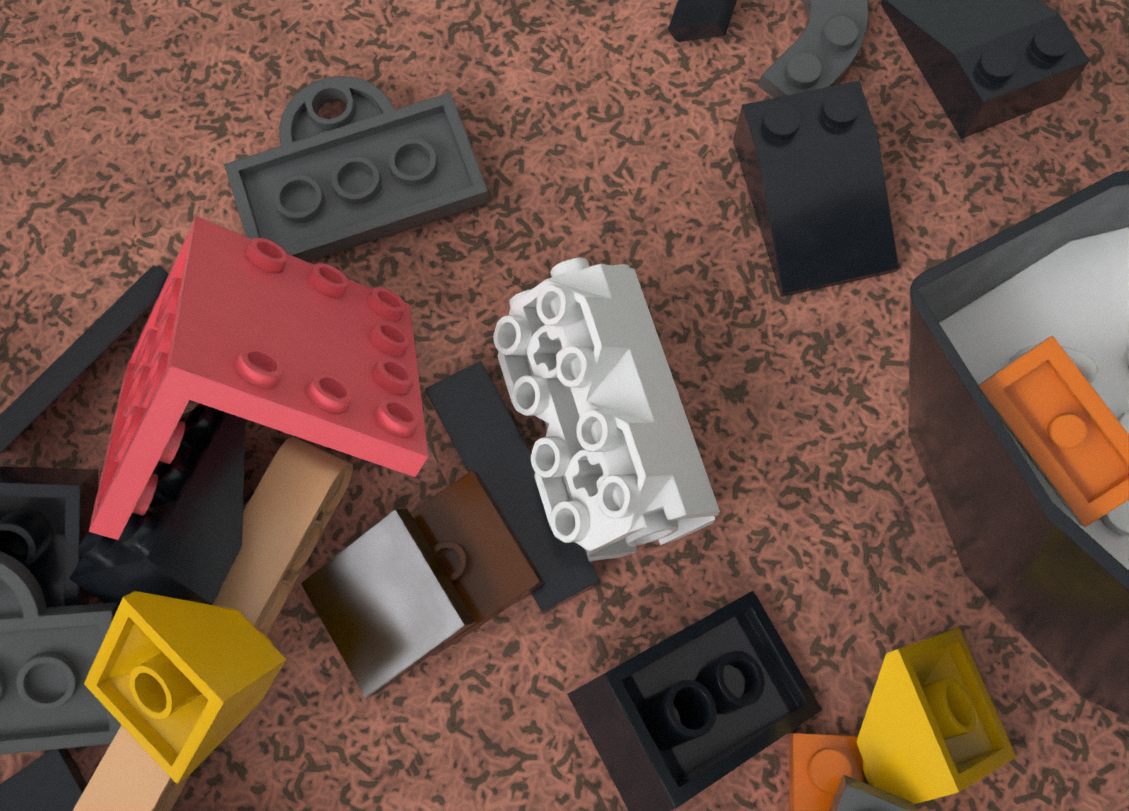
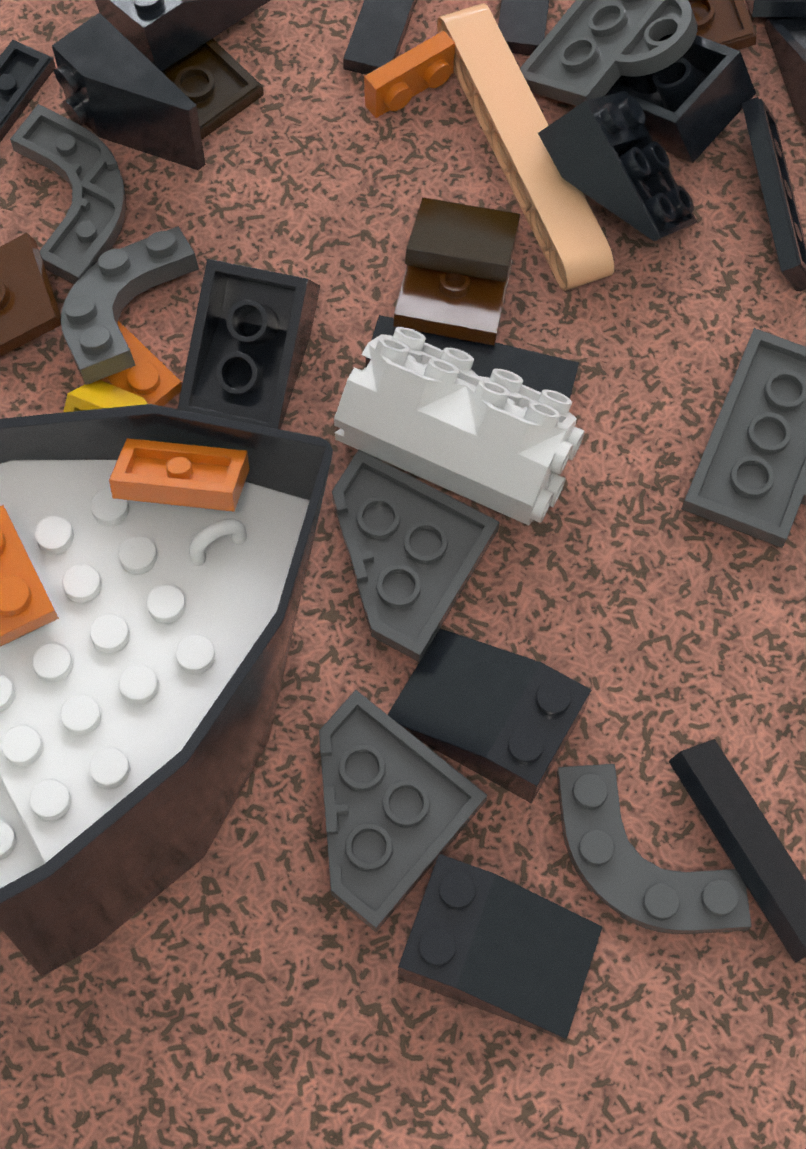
camera: 130 degrees right, 5 degrees down
(181, 676) = (510, 102): yellow slope -> none
(270, 345) = (649, 256): coral bracket -> none
(750, 371) = (407, 550): none -> dark grey plate
(967, 186) = (385, 808): none -> dark grey plate

